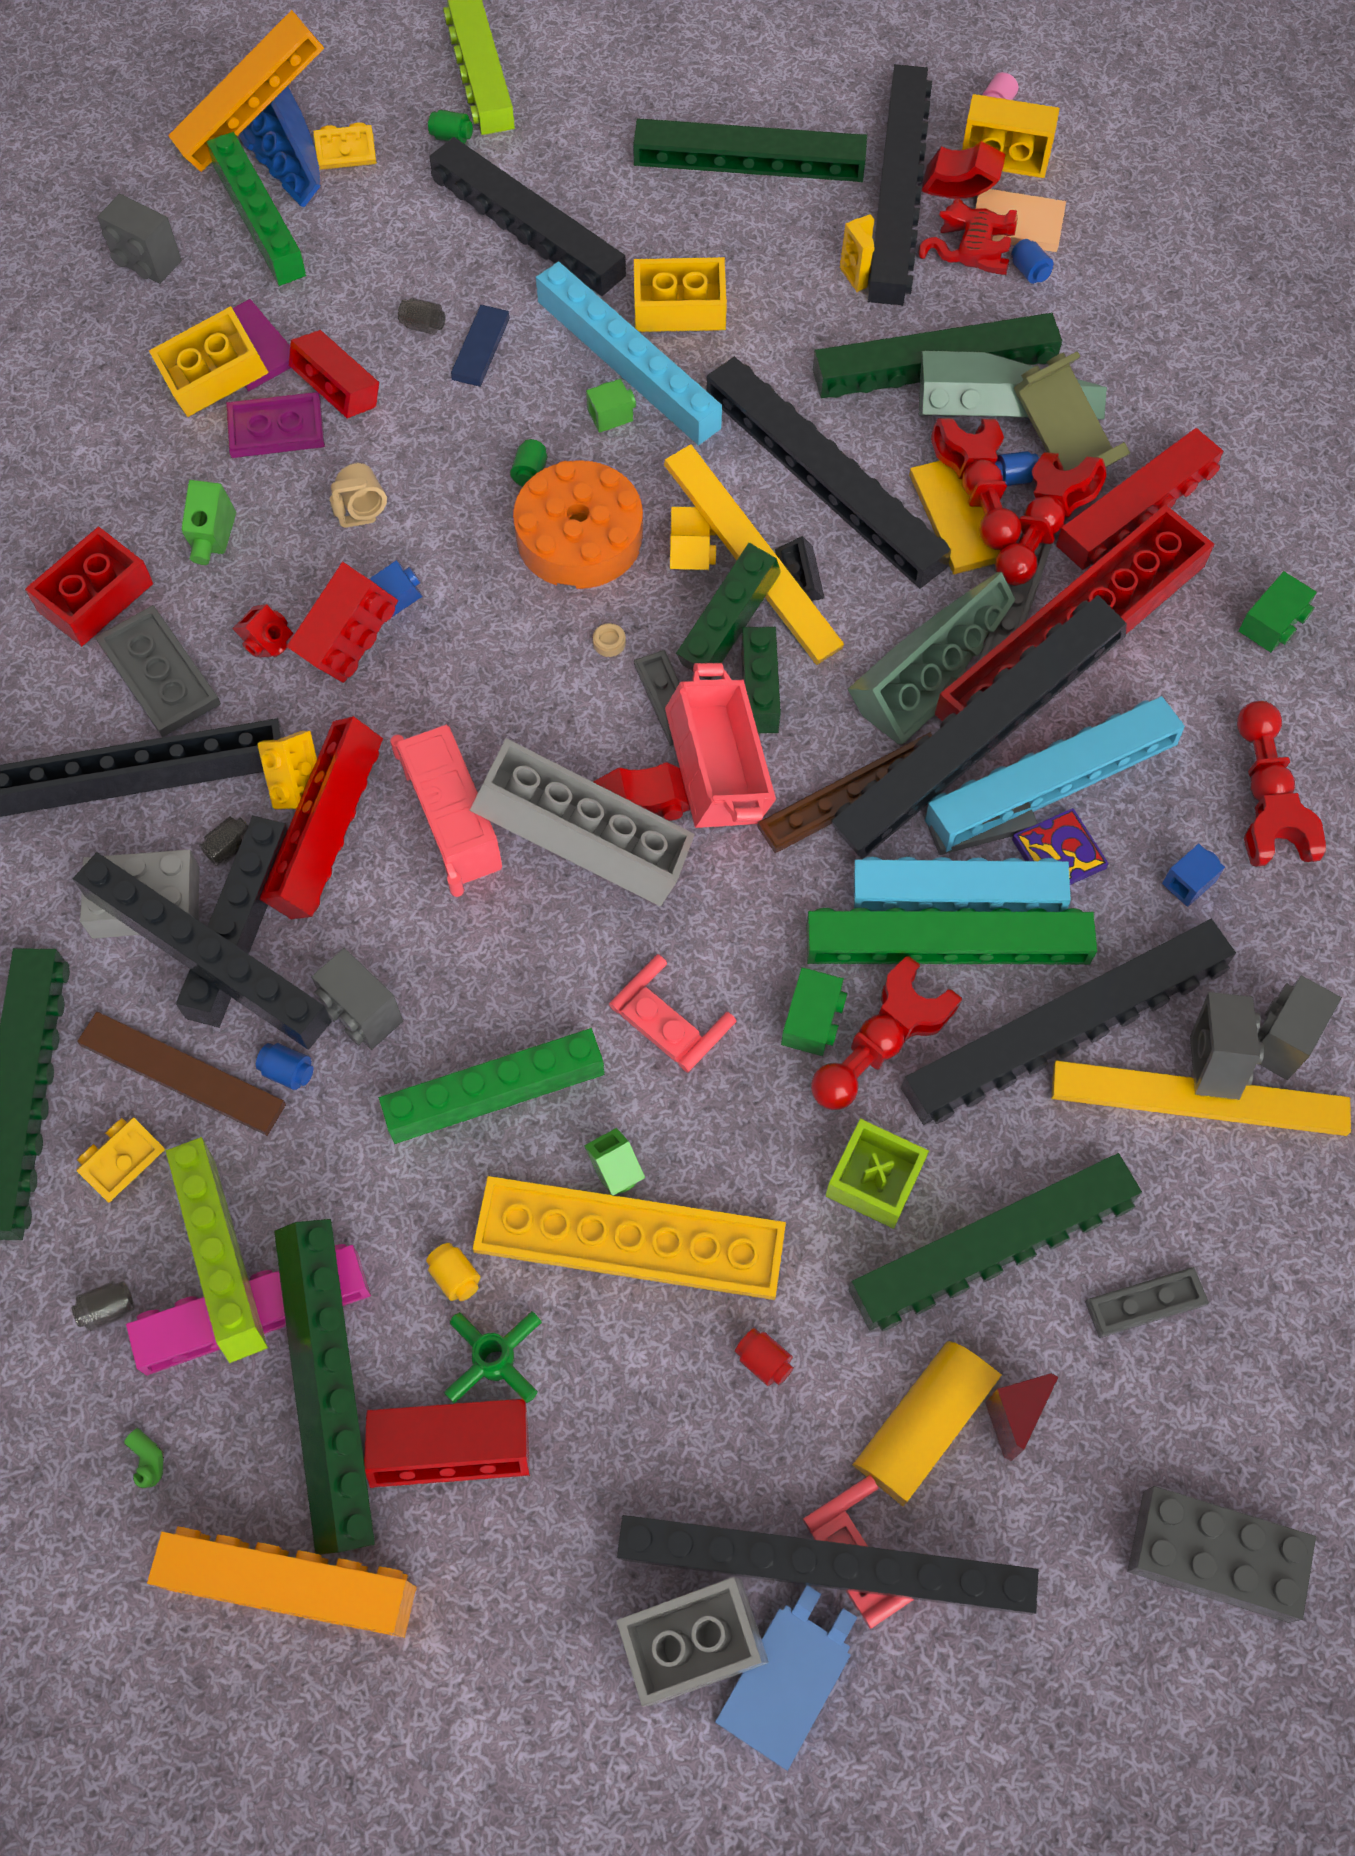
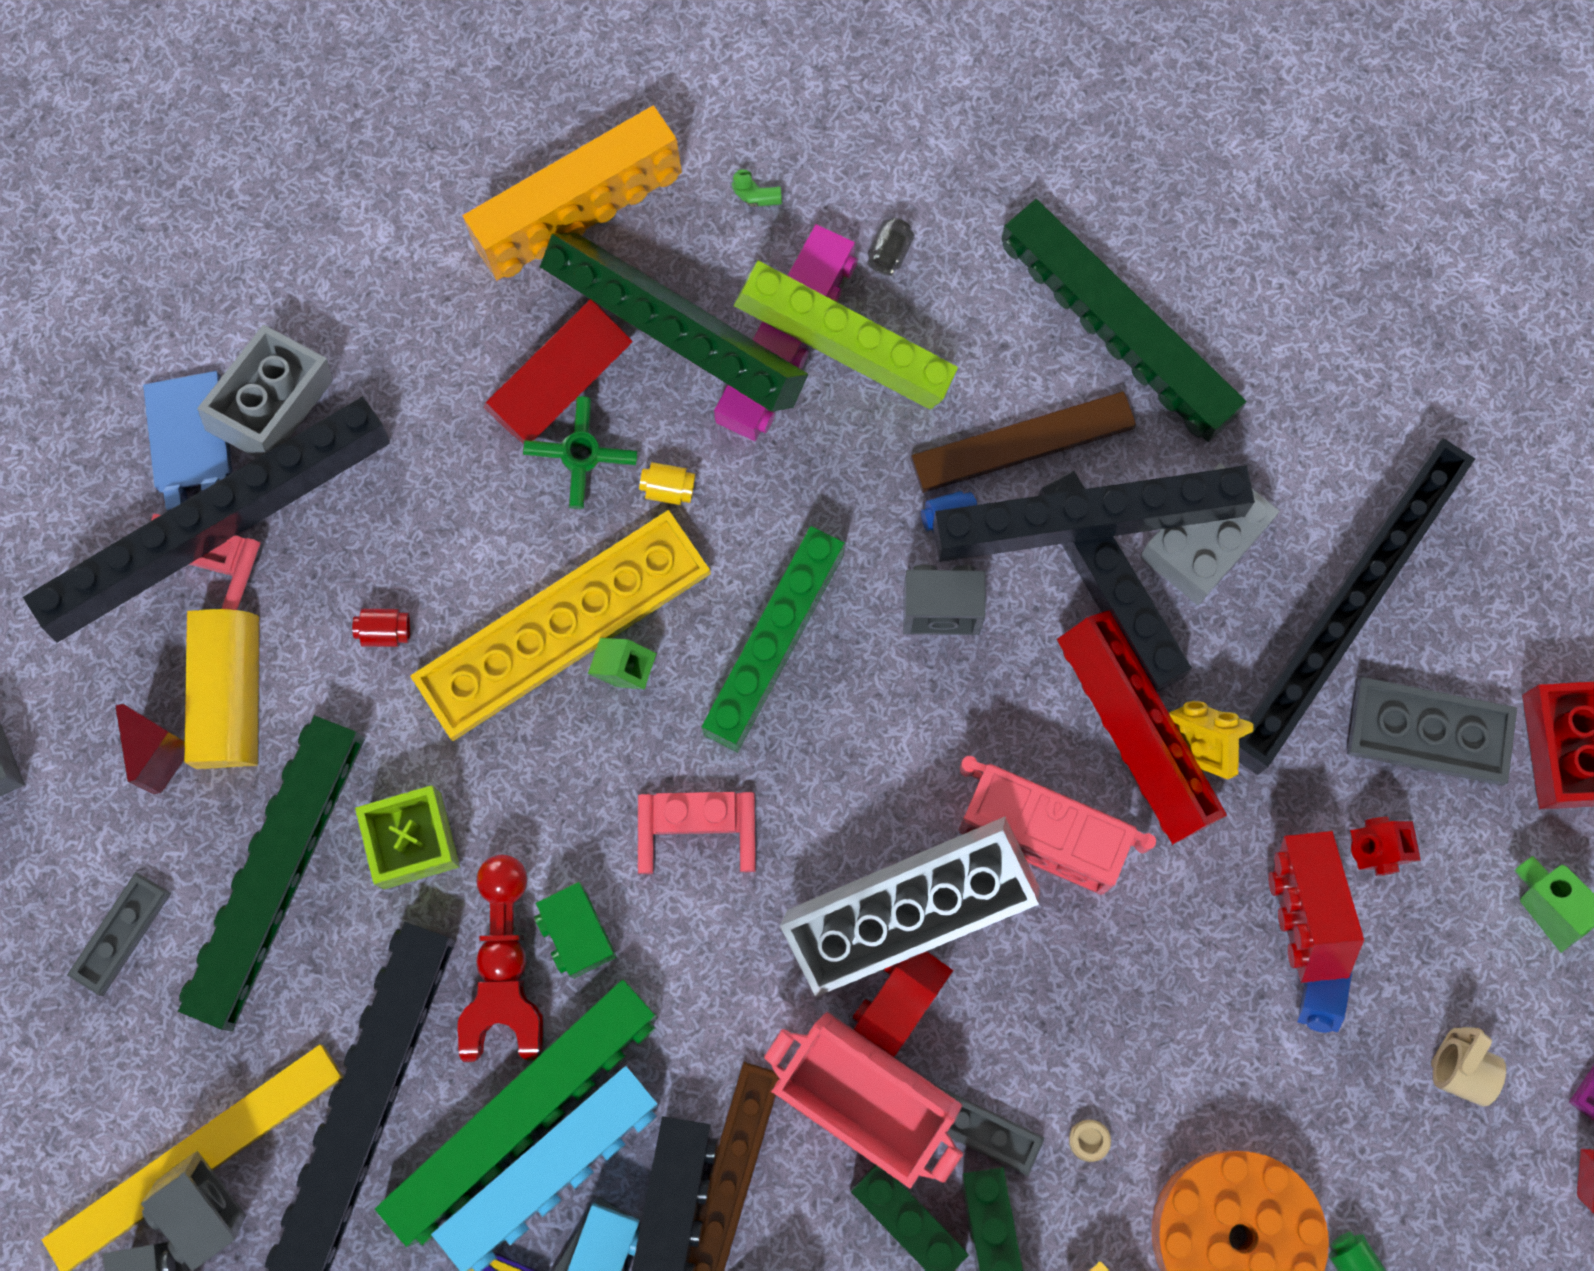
camera: 140 degrees right, 10 degrees up
(119, 1158) = (995, 343): yellow bracket -> none
(224, 840) = (1198, 638): clear smoke brick -> none

